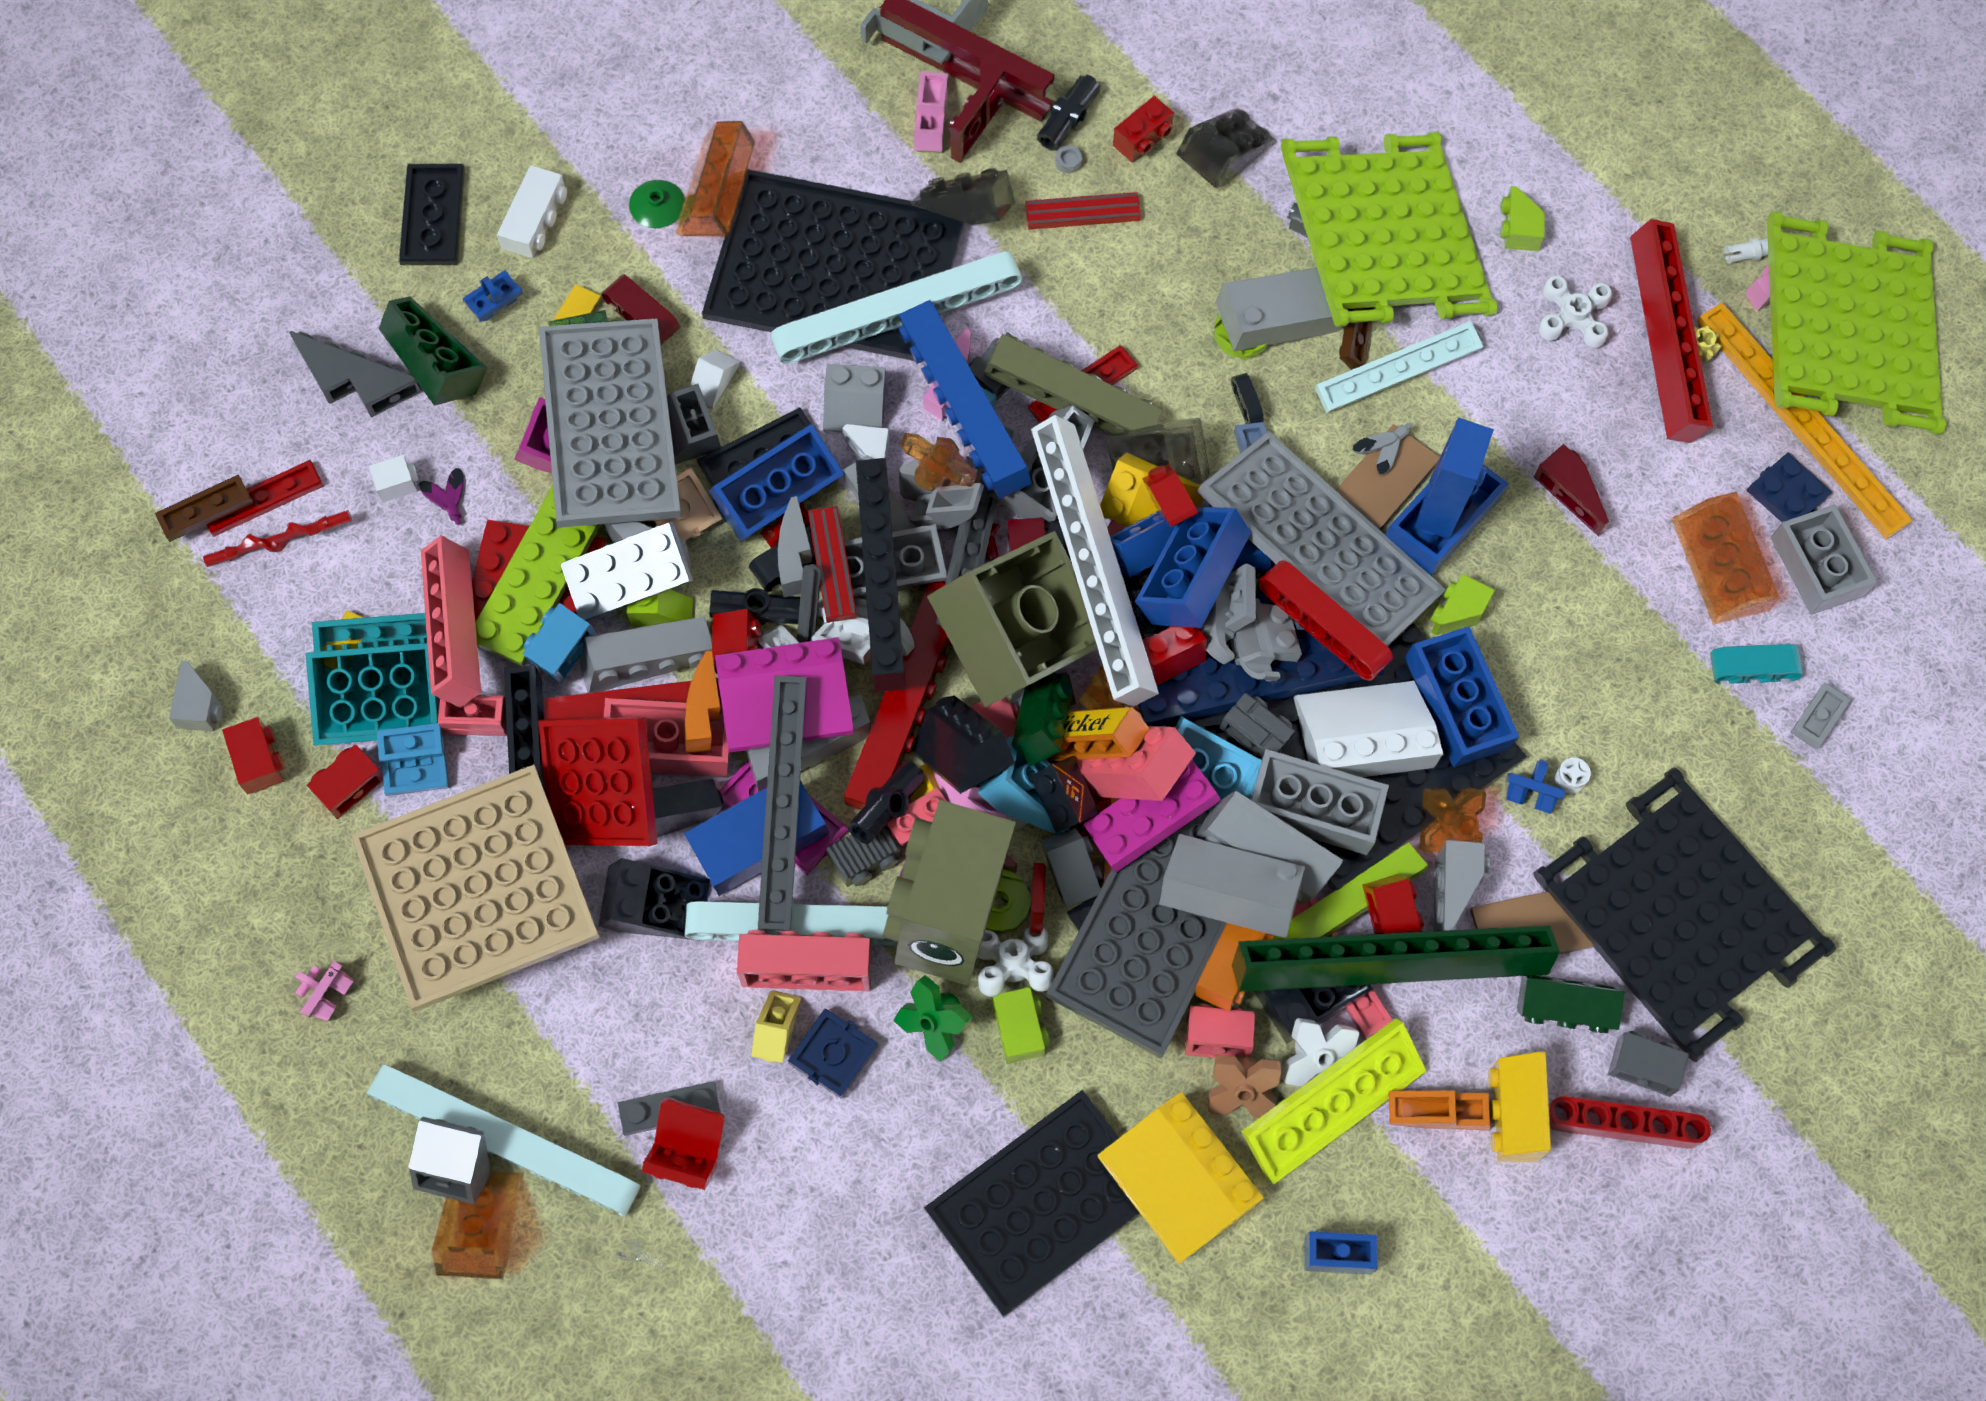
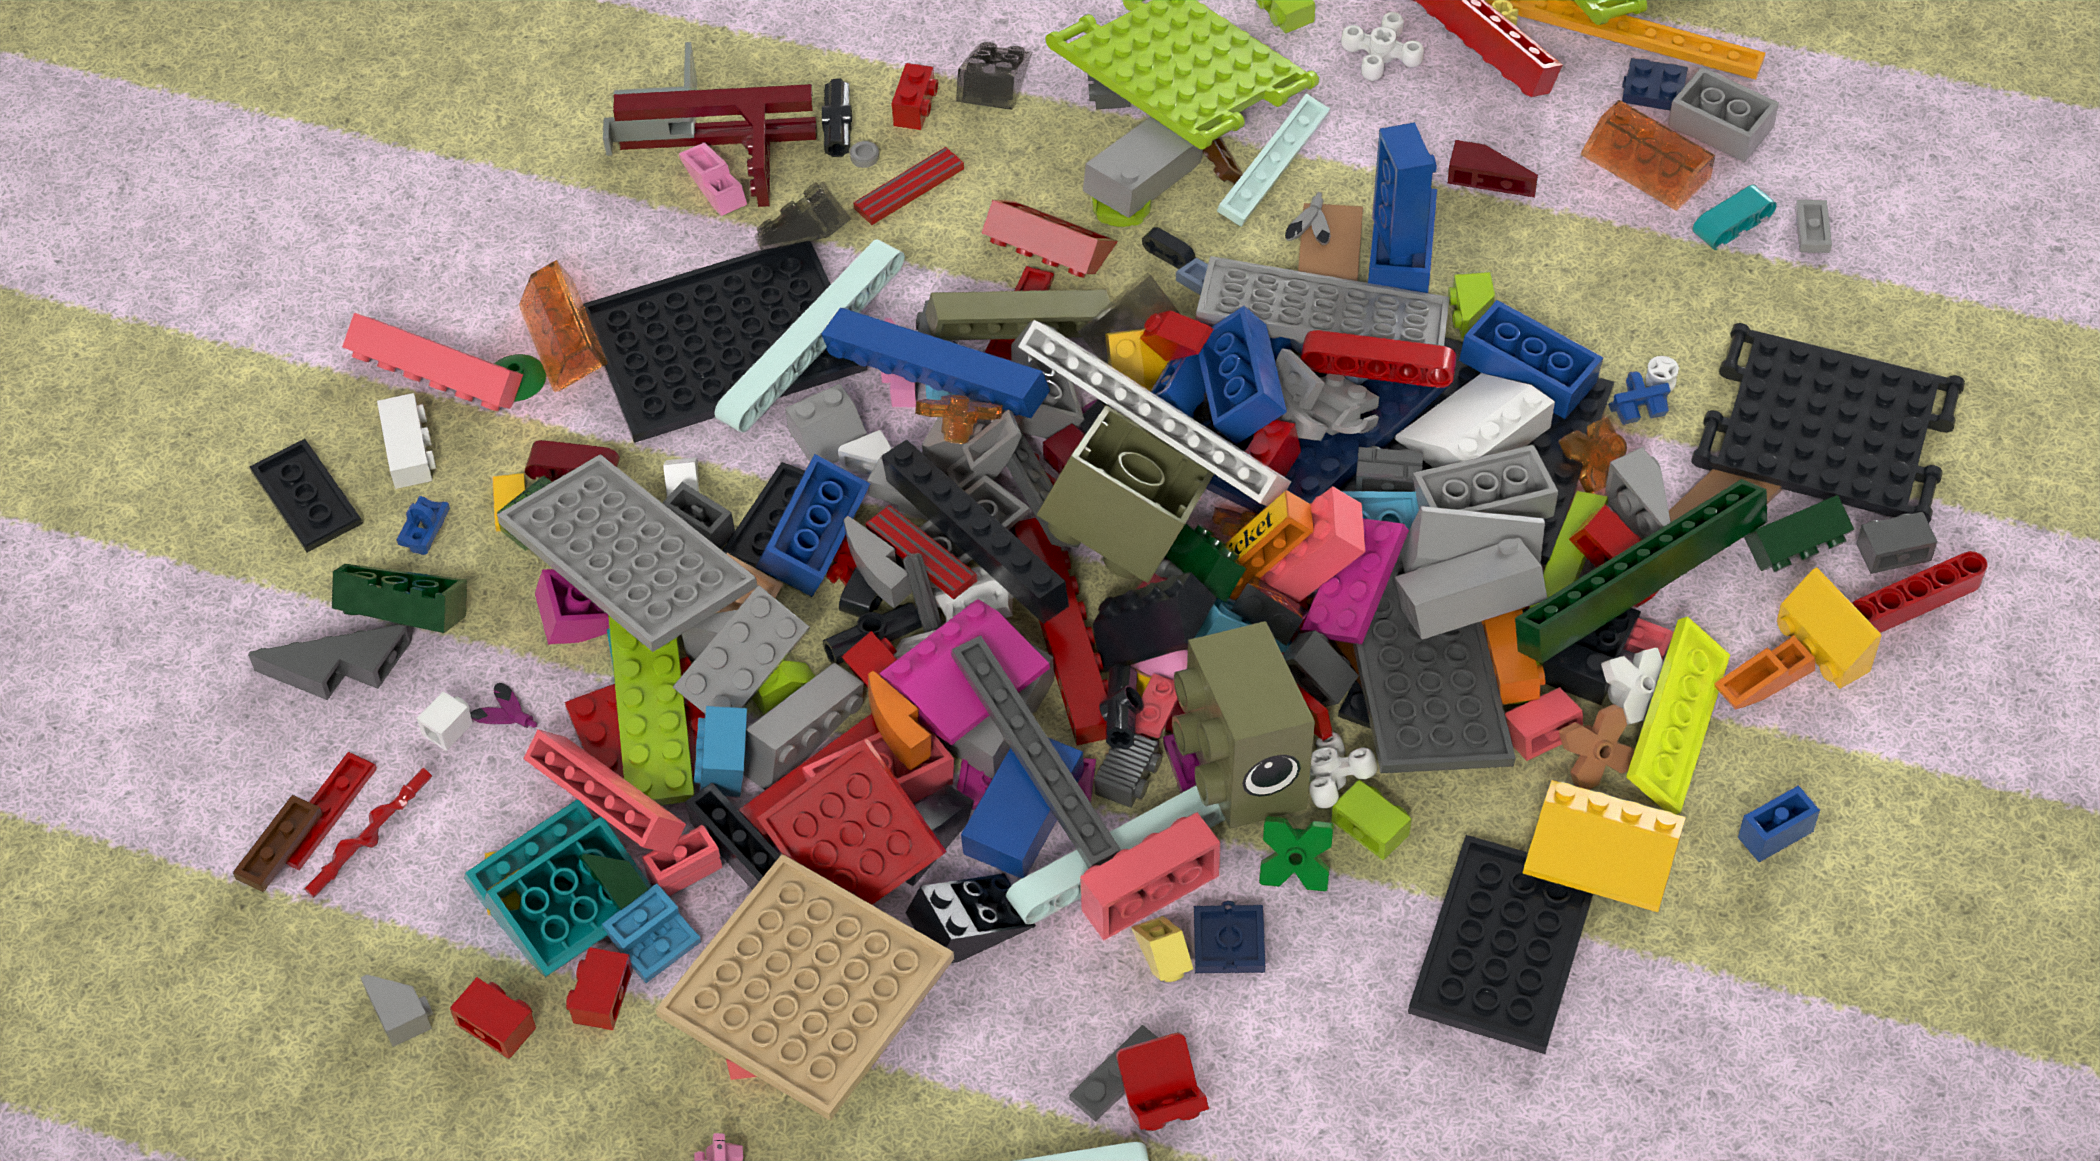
camera: 30 degrees left, 15 degrees down
(407, 700) = (616, 877): none -> dark green slope
(598, 153) = (432, 361): none -> coral brick
(1157, 328) = (1047, 237): none -> slope

